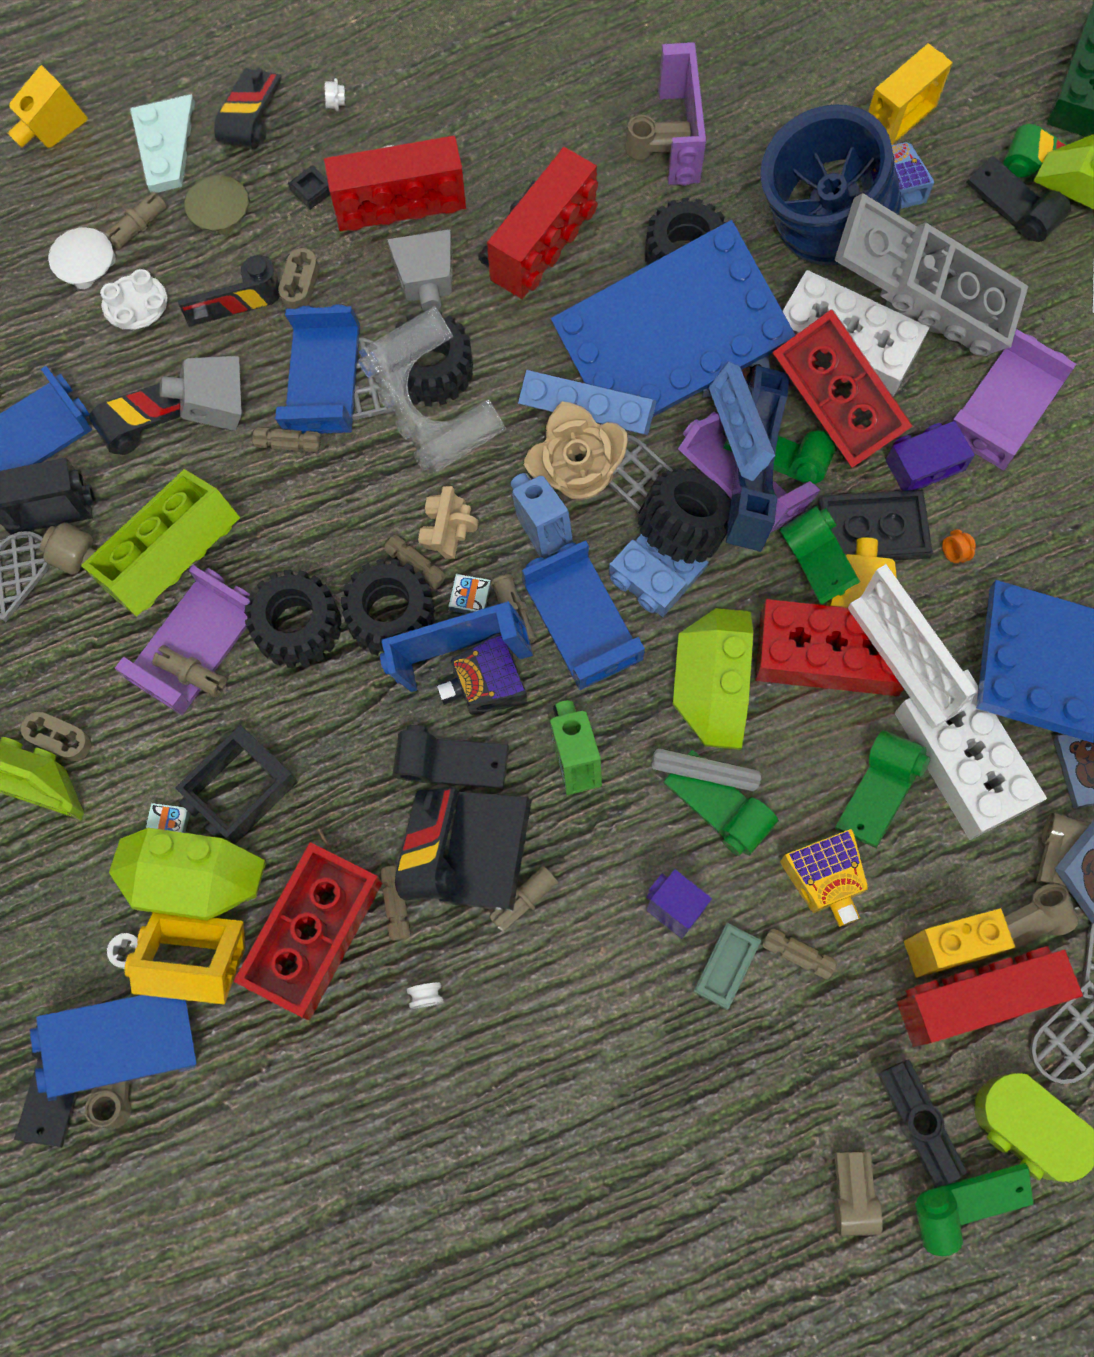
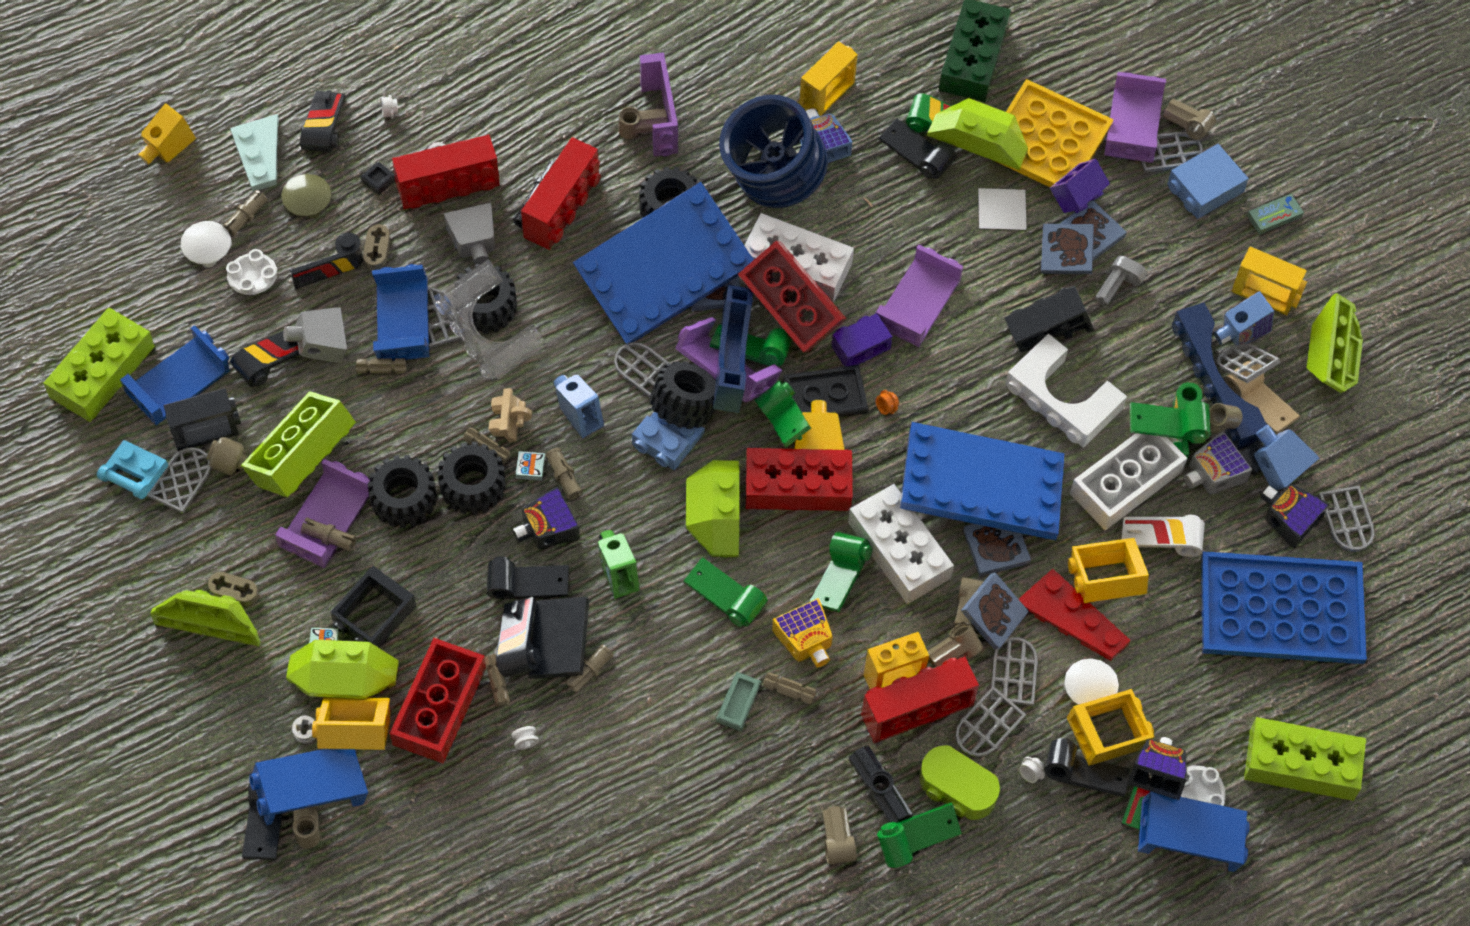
camera: 10 degrees left, 10 degrees down
(450, 636) = (522, 491): blue panel -> none
(575, 432) = (598, 343): tan brick -> none
(580, 615) = (613, 472): blue panel -> none
(605, 405) = (605, 321): medium blue plate -> none
(676, 902) = (699, 657): dark purple brick -> none
(706, 770) = (713, 569): light grey axle -> none
(741, 422) = (718, 324): medium blue plate -> none
(912, 649) = (848, 469): white fence -> none
(932, 277) = (851, 213): light grey wedge -> none

